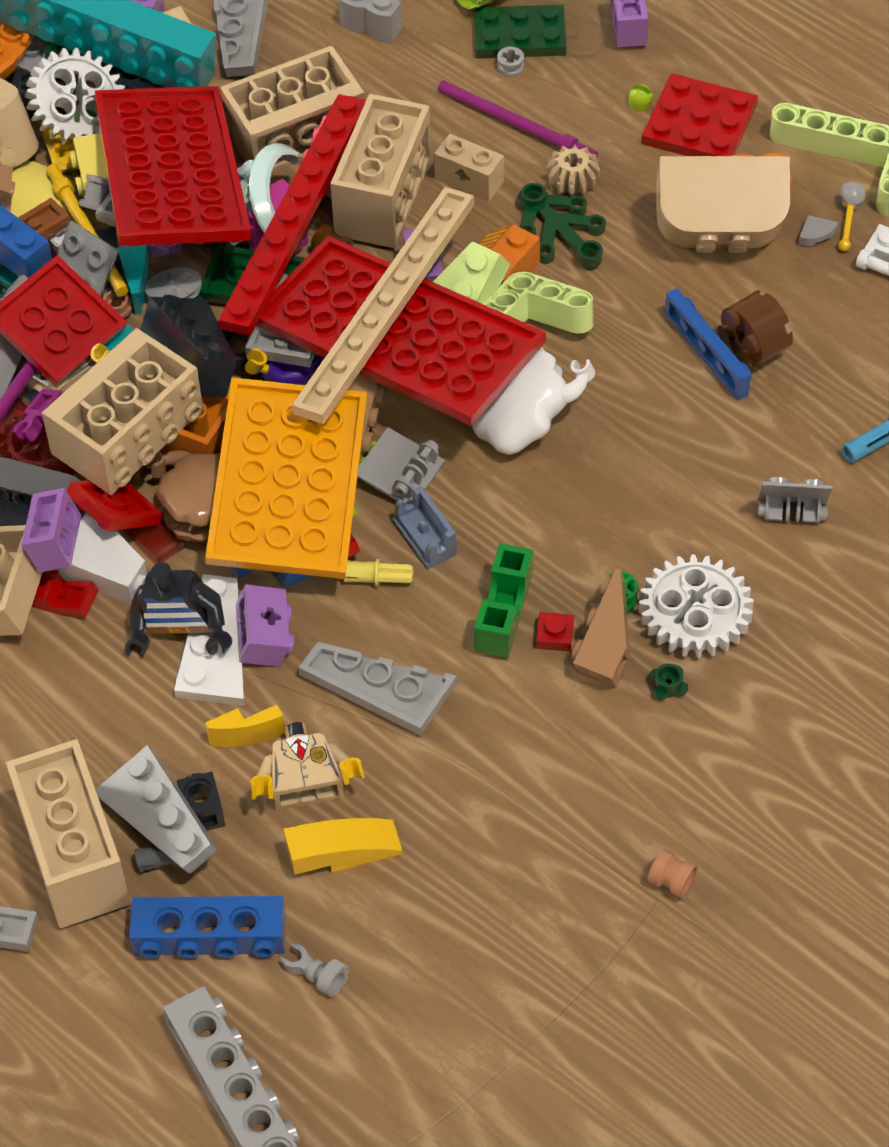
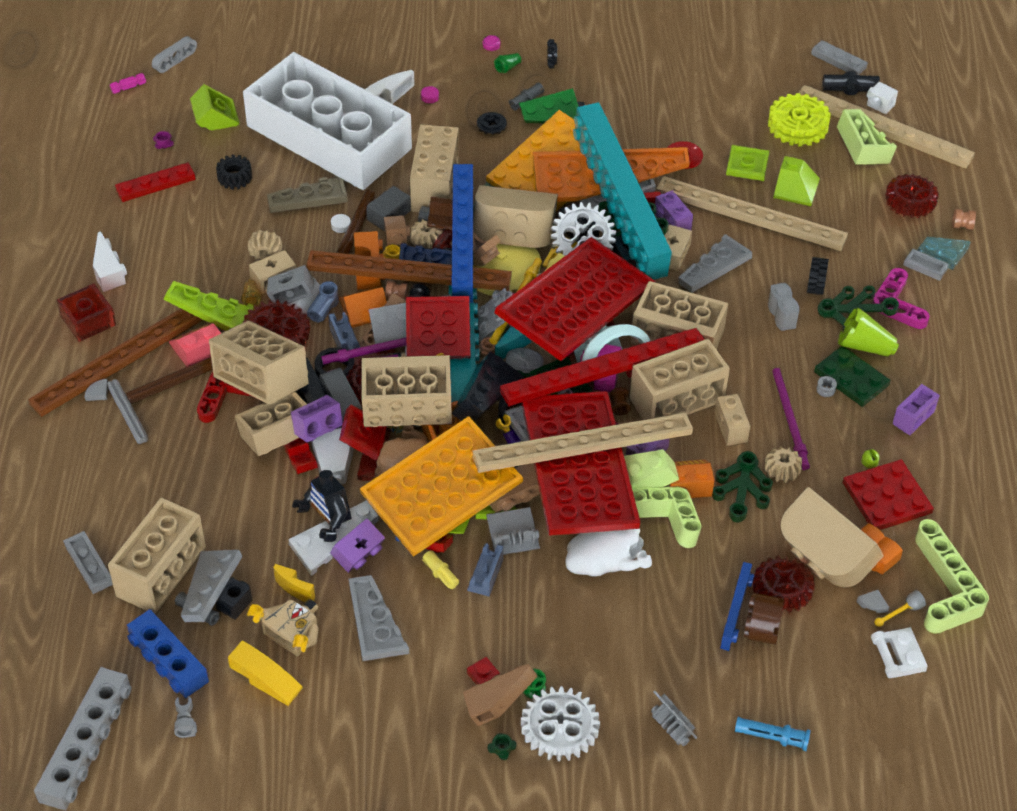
camera: 45 degrees right, 5 degrees down
(502, 610) = (489, 629): green arch -> none
(719, 280) = (782, 577): none -> clear red gear

